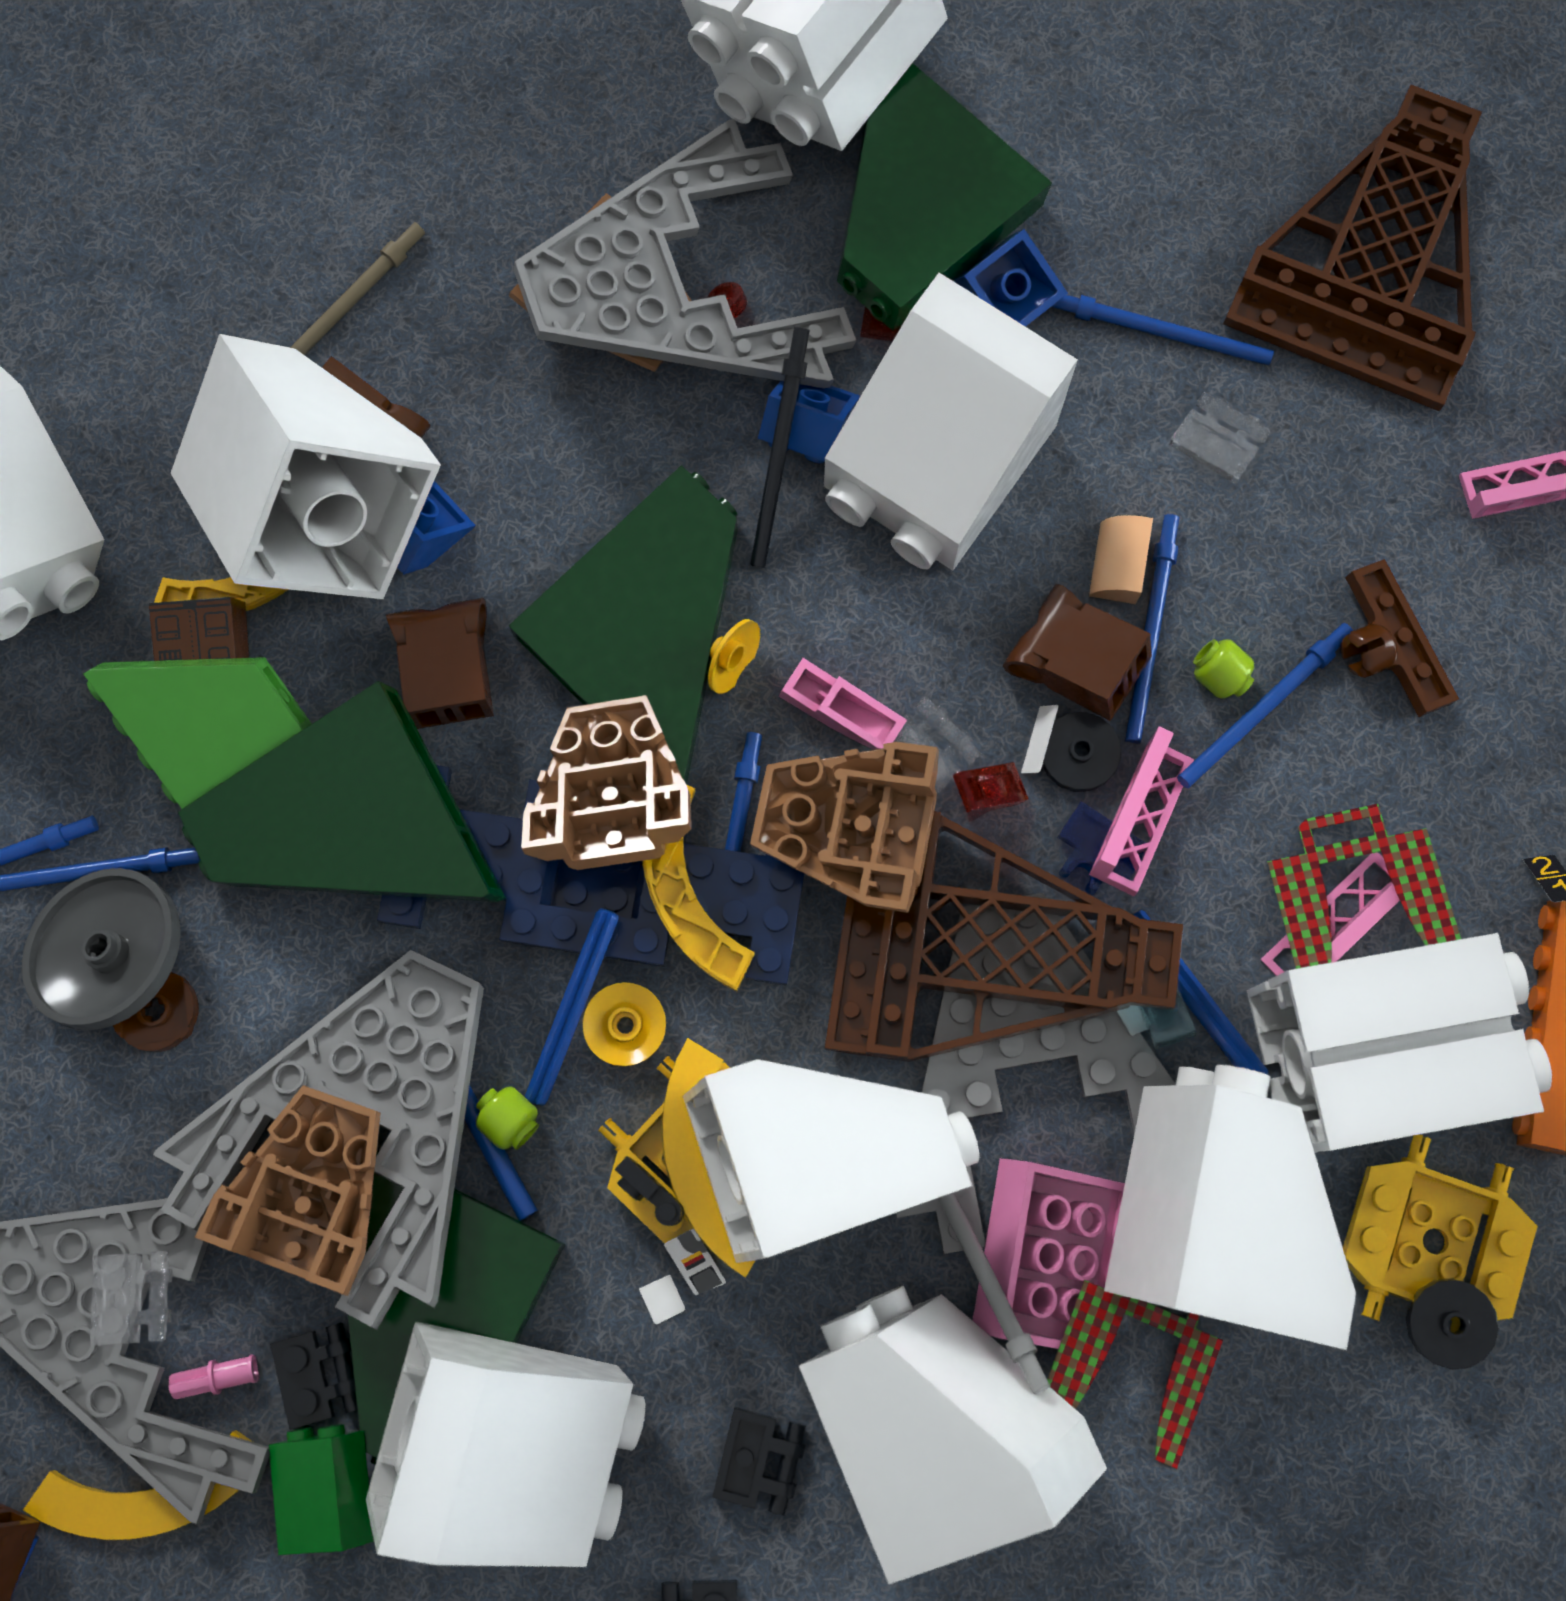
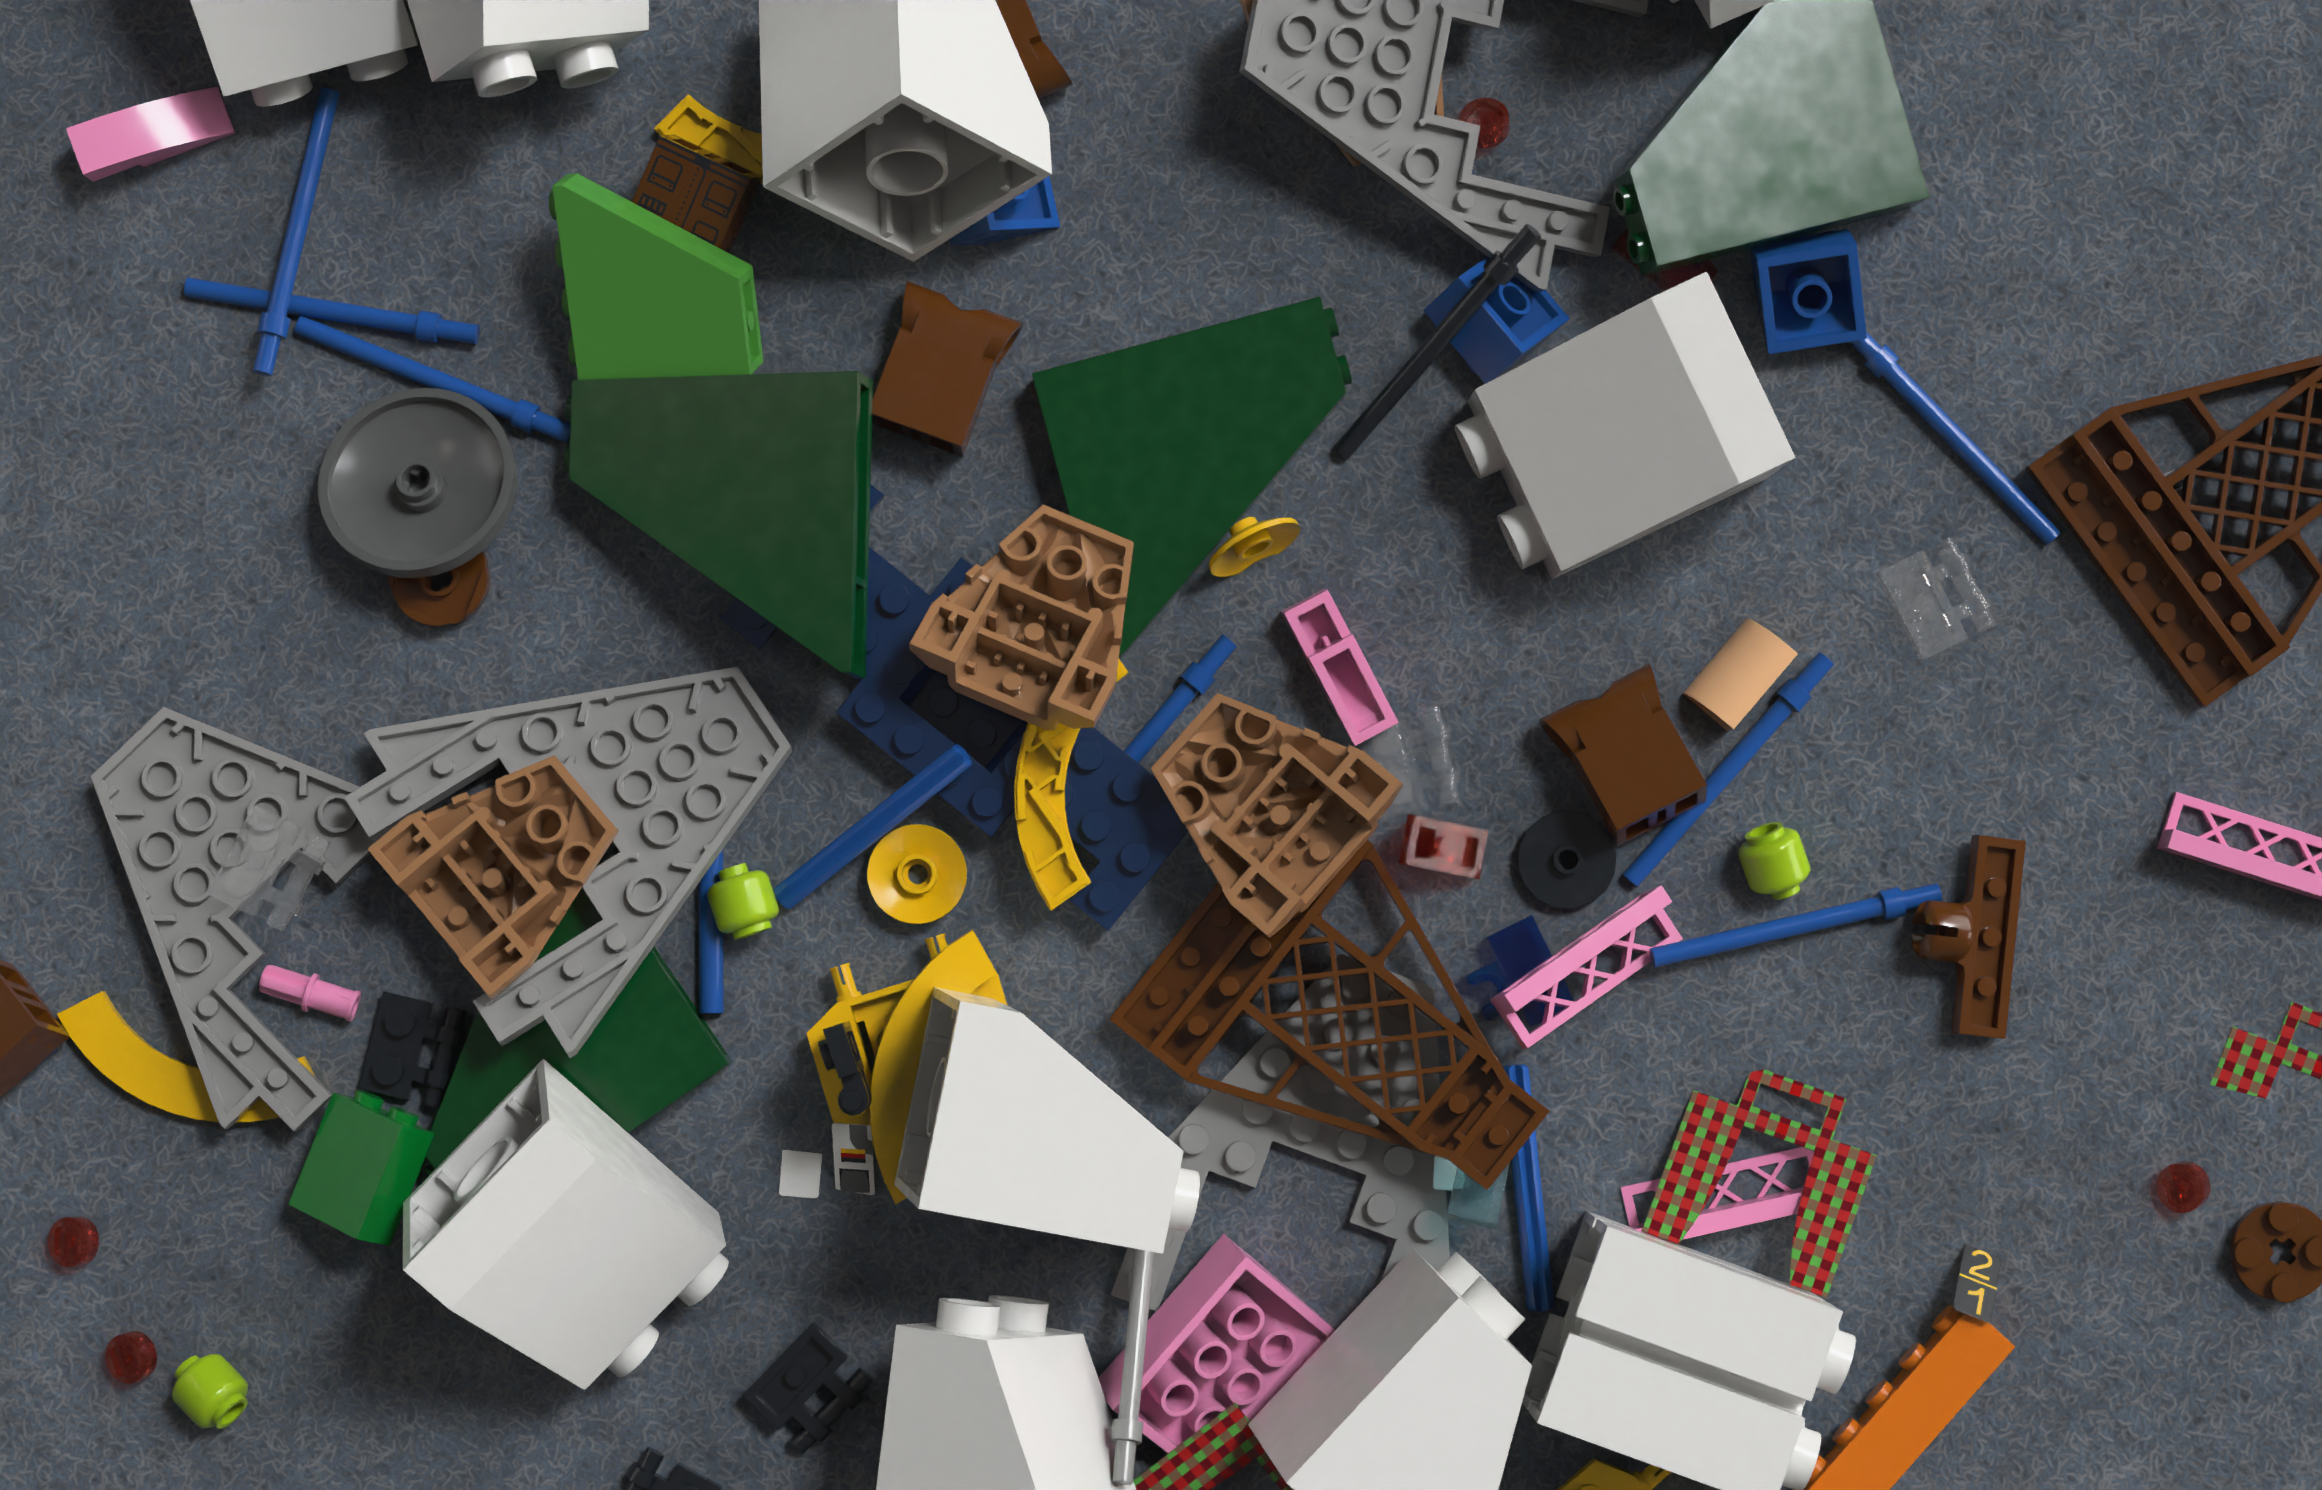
camera: 25 degrees right, 10 degrees up
(1039, 739) = (1530, 822): white sticker -> none

